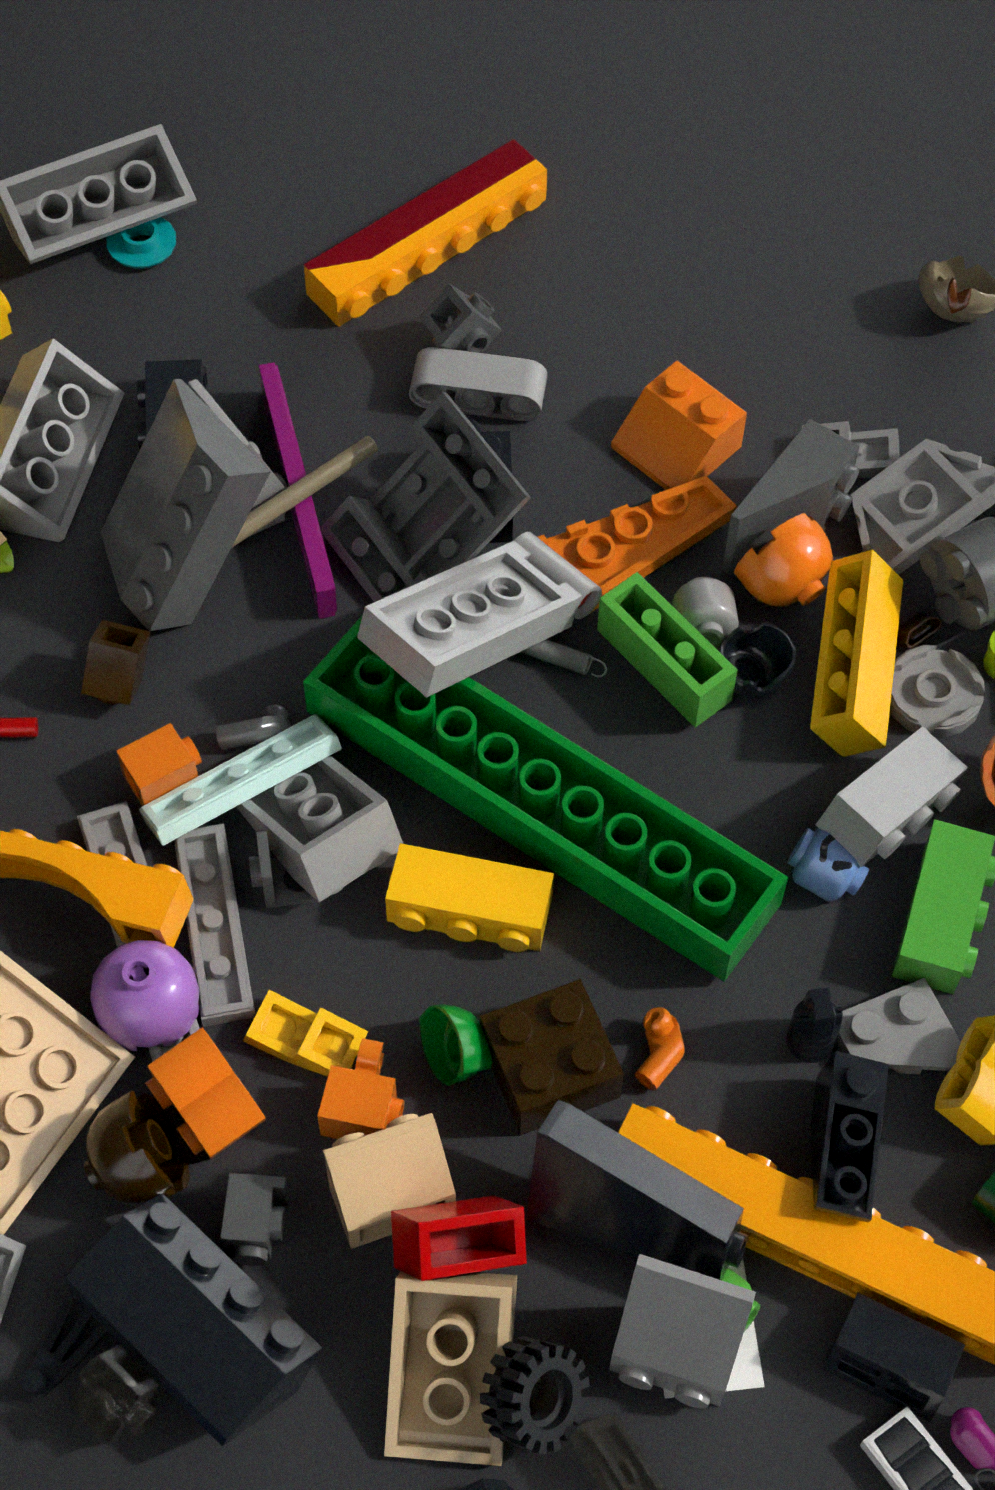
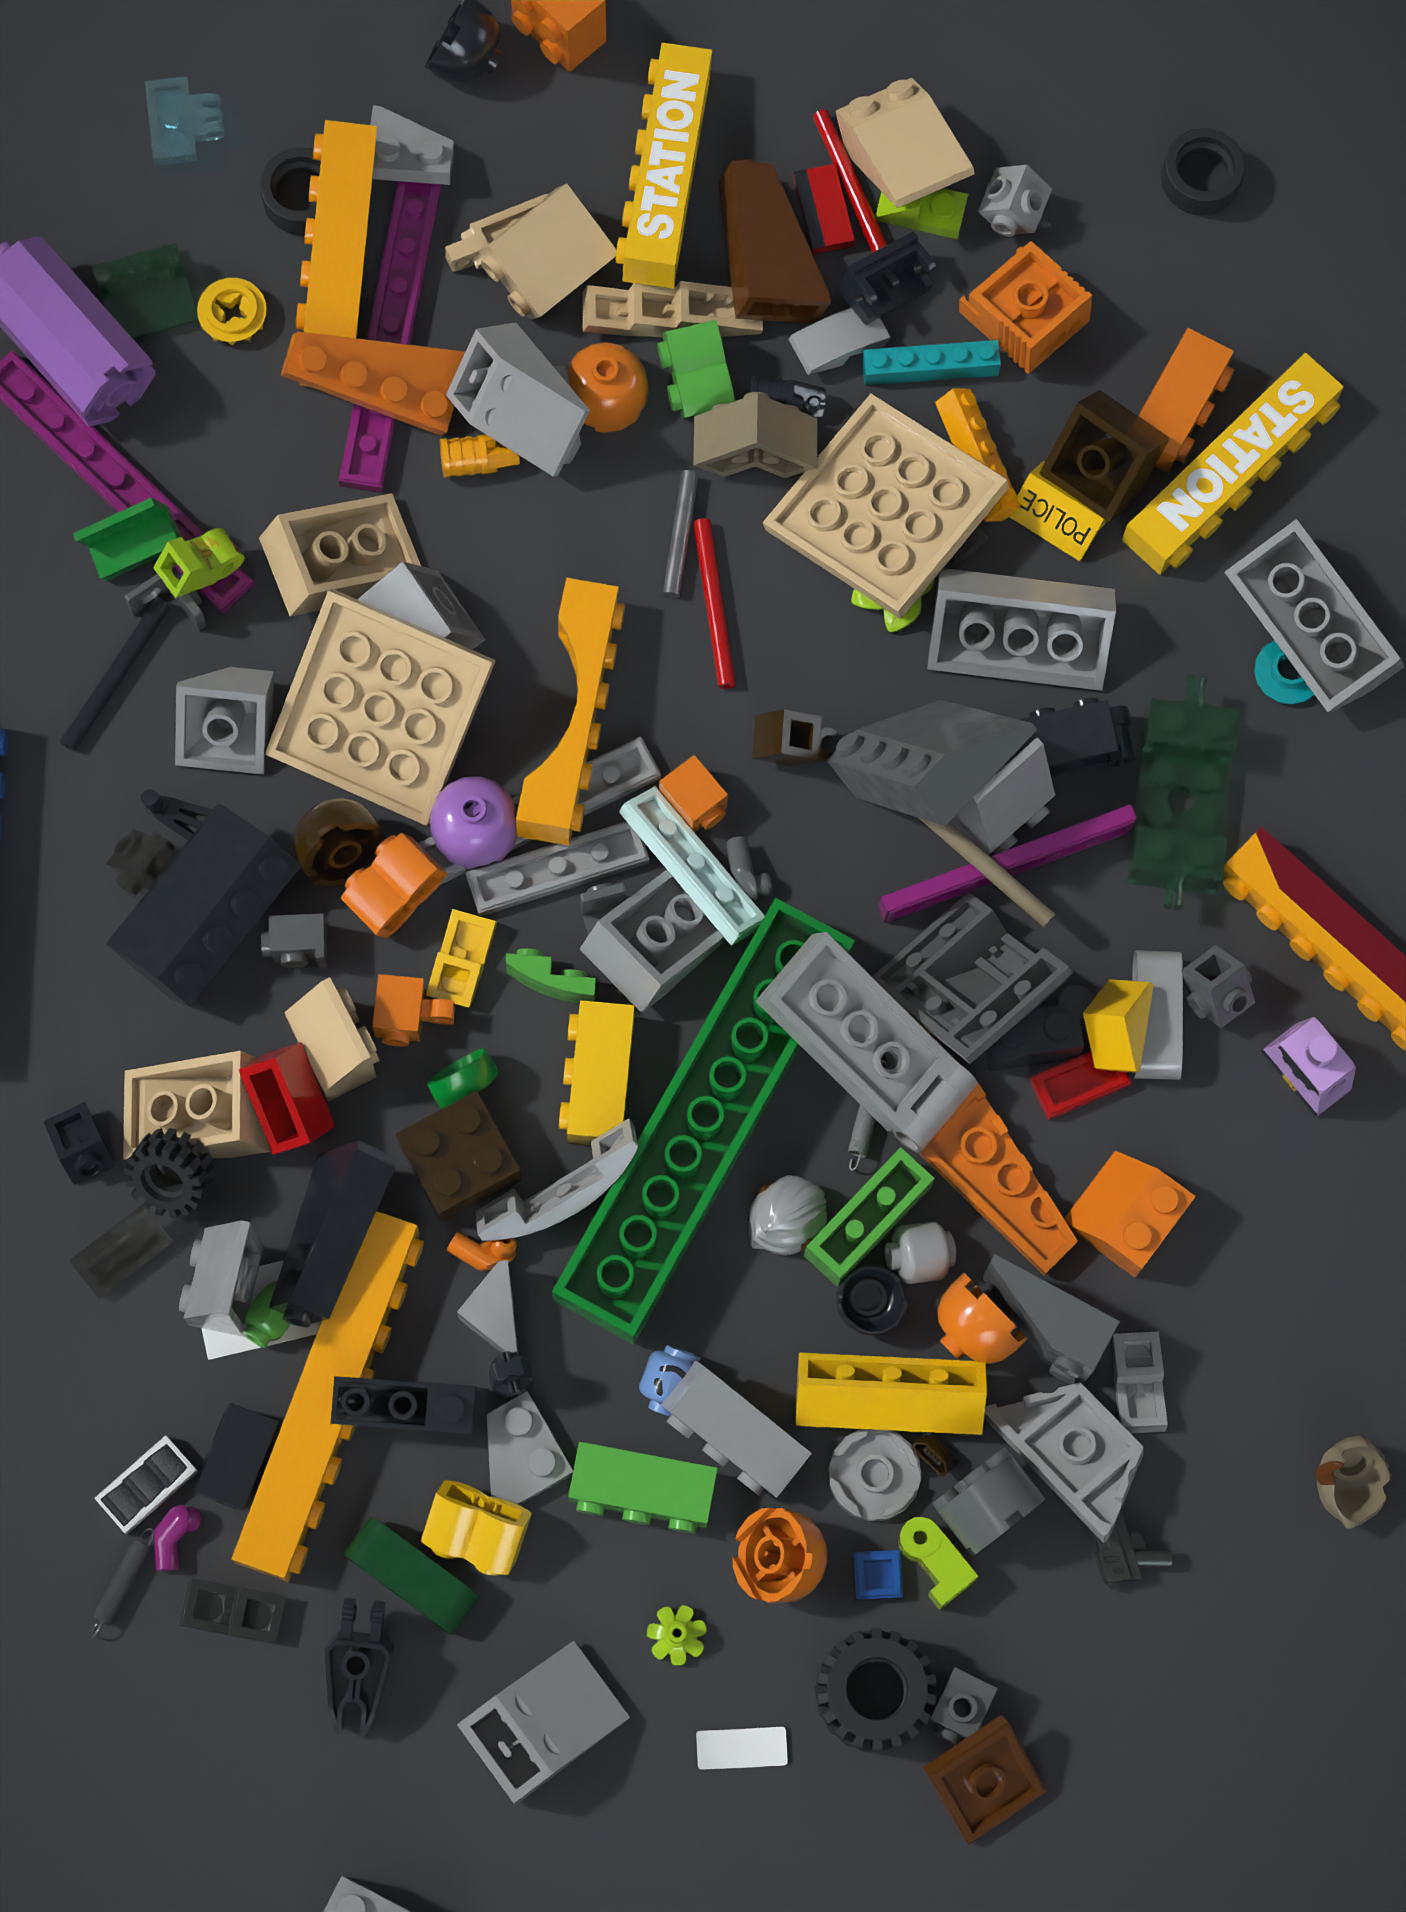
camera: 80 degrees right, 15 degrees up
(210, 325) = (1187, 751): none -> clear green brick
(346, 943) = (535, 972): none -> bright green slope
(493, 401) = (1118, 1024): none -> yellow slope
(537, 462) = (1075, 1085): none -> red tile
(546, 263) = (1312, 1064): none -> lavender torso
(609, 939) = (512, 1217): none -> light grey slope
(651, 735) = (786, 1215): none -> light grey hair
(735, 1038) = (491, 1309): none -> light grey slope

